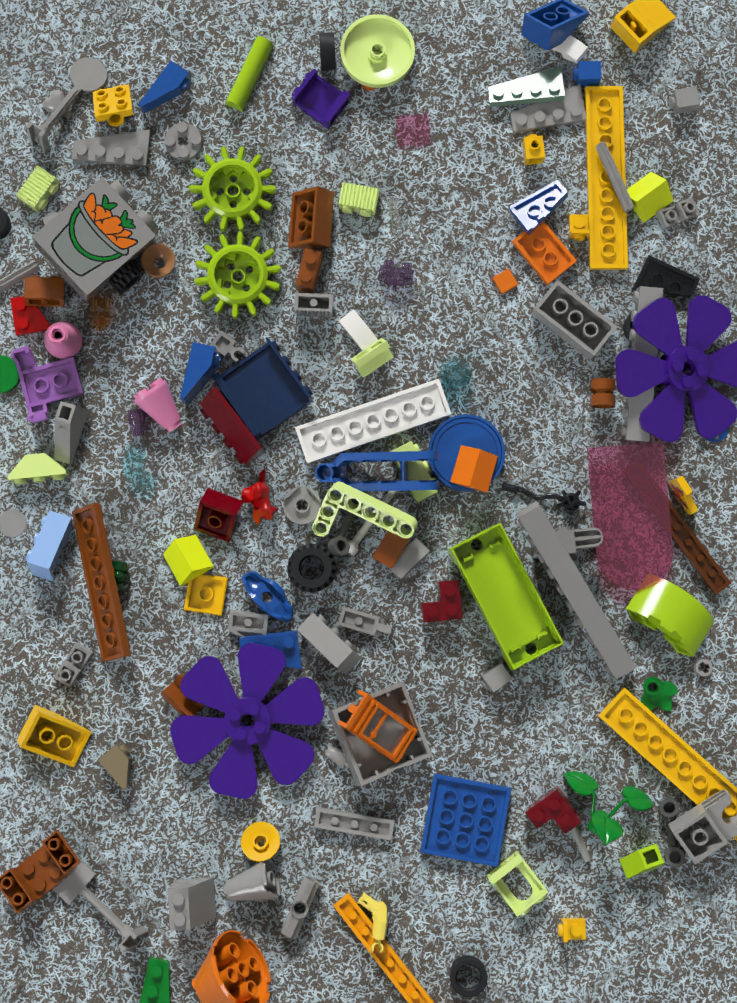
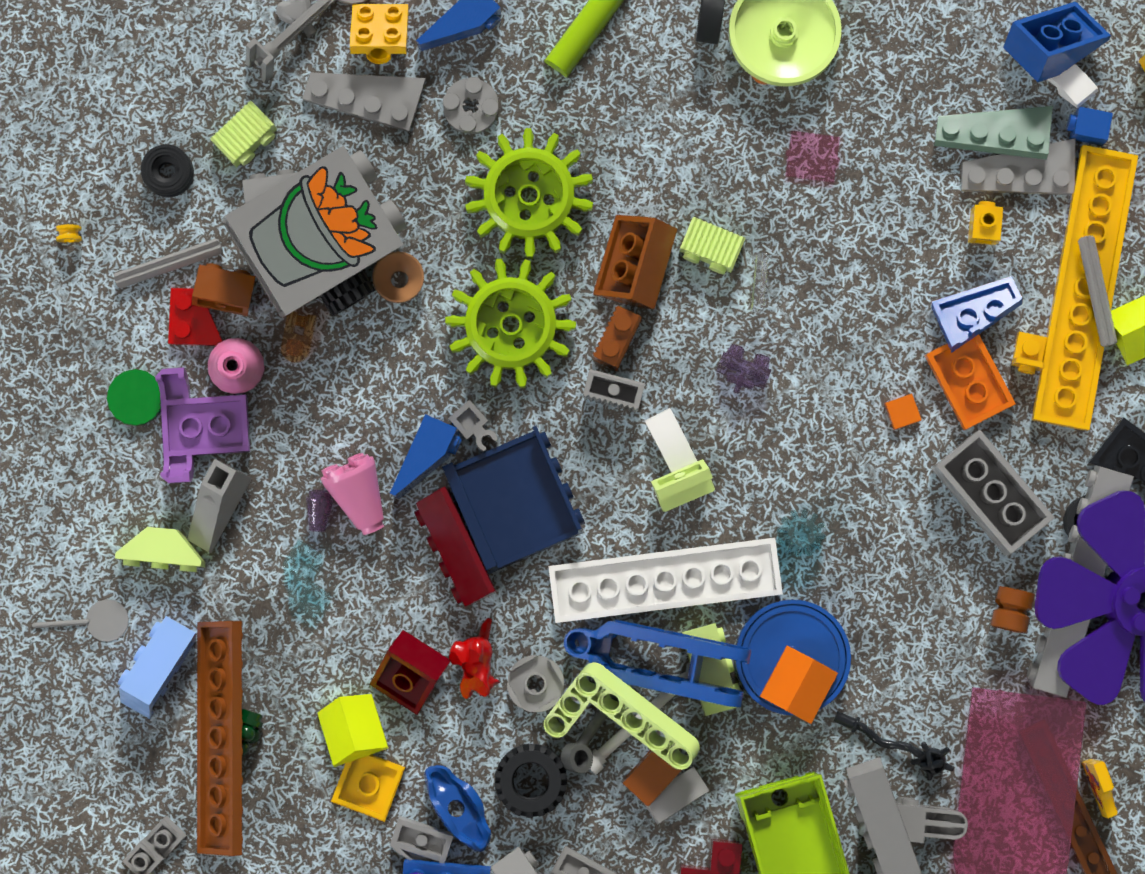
camera: 15 degrees right, 0 degrees up
(320, 99) = (685, 83): dark purple panel -> none

